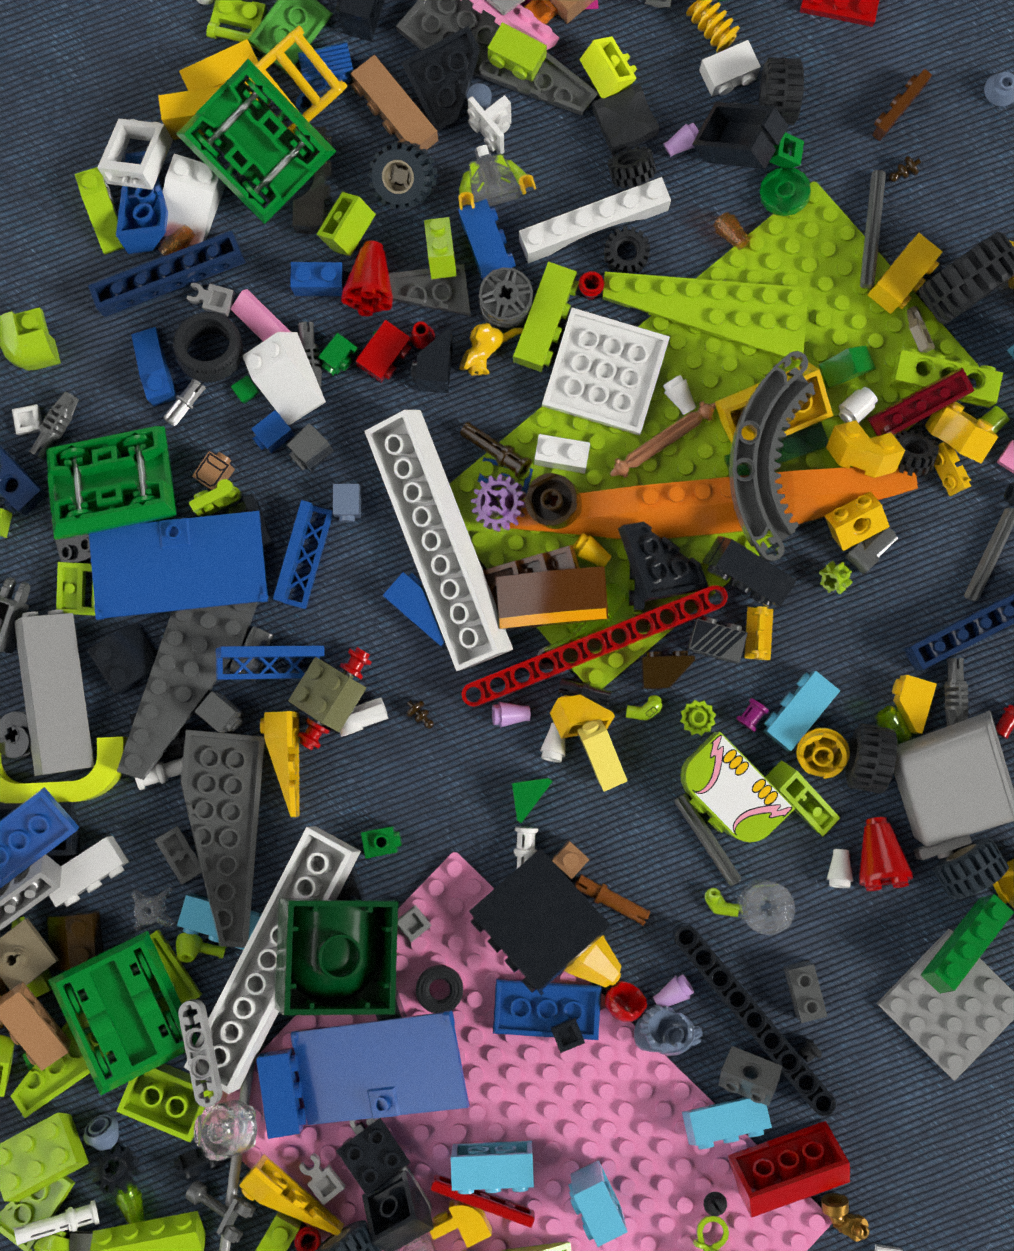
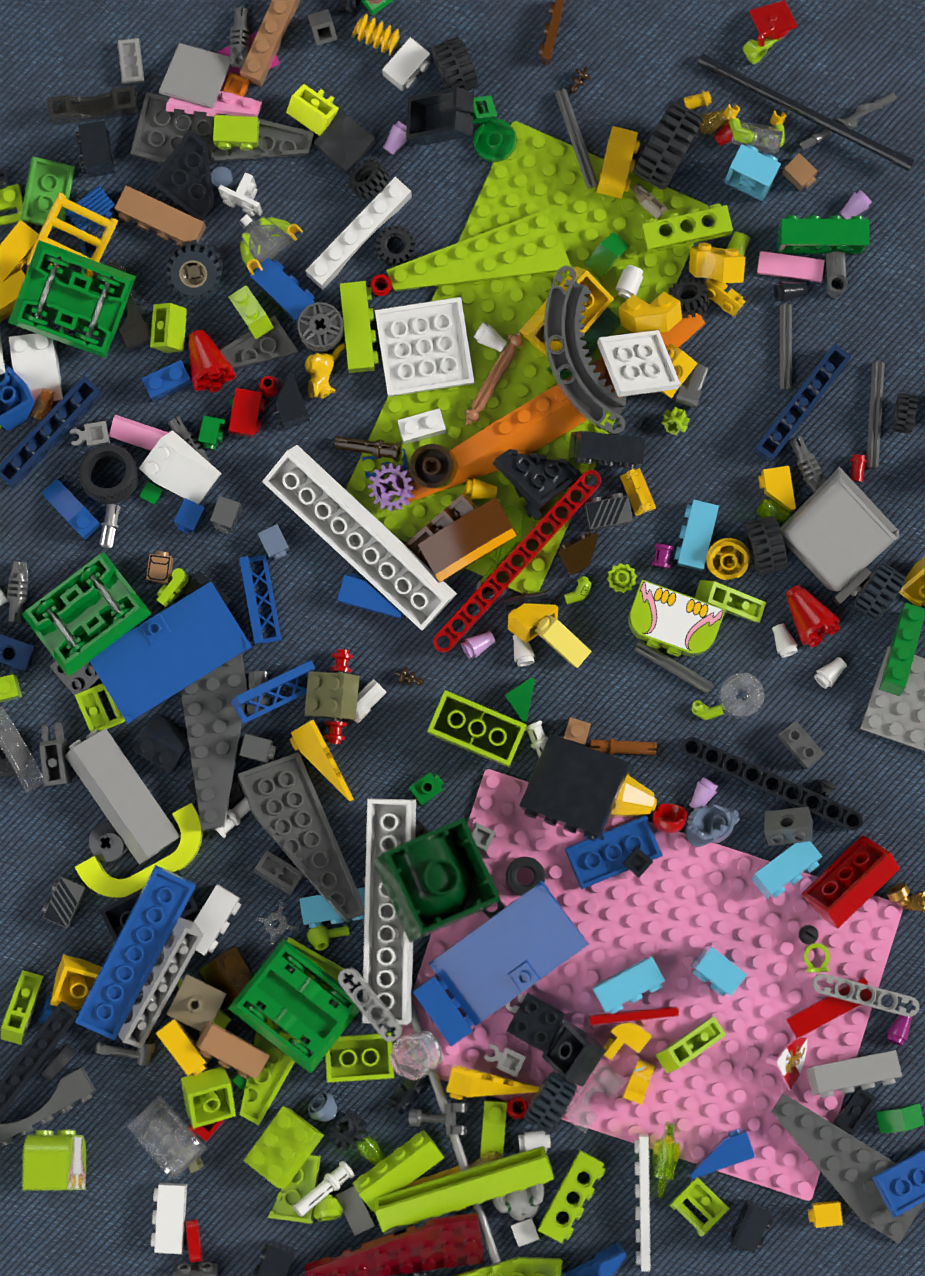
camera: 30 degrees left, 0 degrees up
(463, 807) = (476, 729): none -> lime brick
(730, 229) = (468, 191): clear orange cone -> none
(828, 495) = (638, 363): none -> white plate
(871, 929) = (829, 673): none -> white cone
(922, 403) = (676, 258): dark red tile -> none

